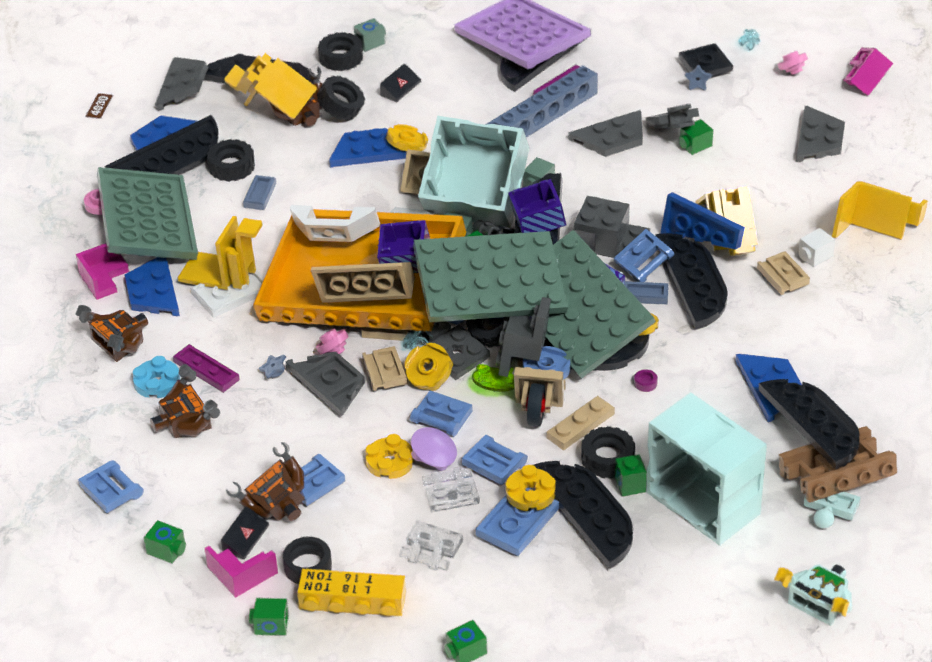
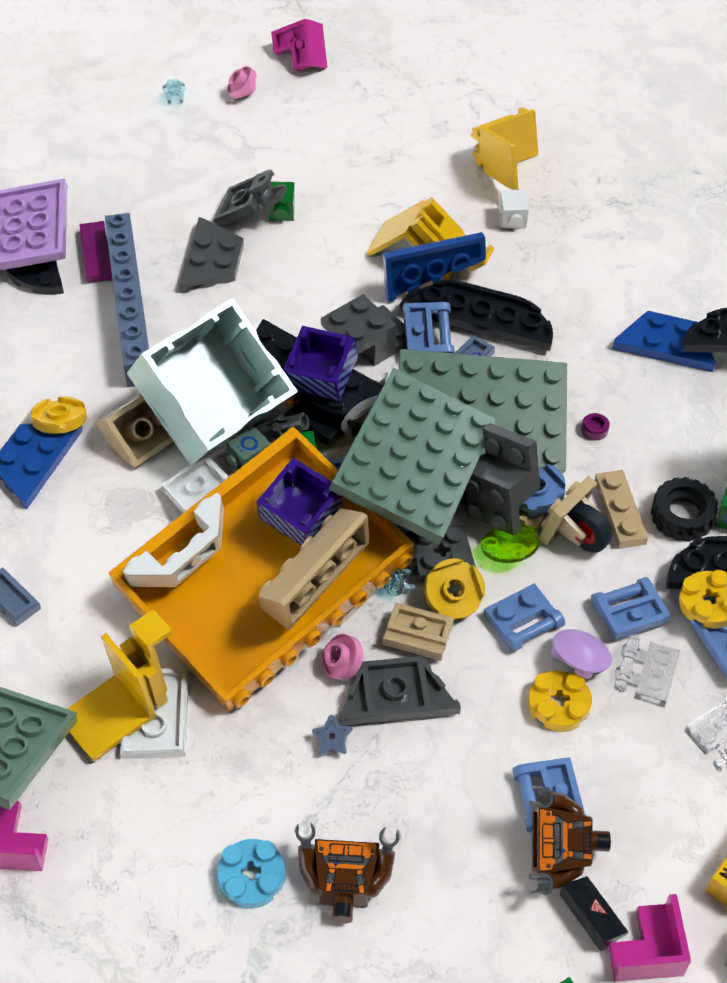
camera: 60 degrees left, 10 degrees up
(114, 332) = (141, 877): torso -> none
(152, 288) = (83, 796): blue wing -> none
(207, 368) = (273, 809): magenta tile -> none
(304, 546) = (691, 845): black tyre -> none
(698, 72) = (197, 153): sand blue plate -> none
(708, 57) = (174, 136): black plate -> none
(783, 272) = (526, 249): tan plate -> none
(820, 135) = (352, 124): dark grey wing -> none

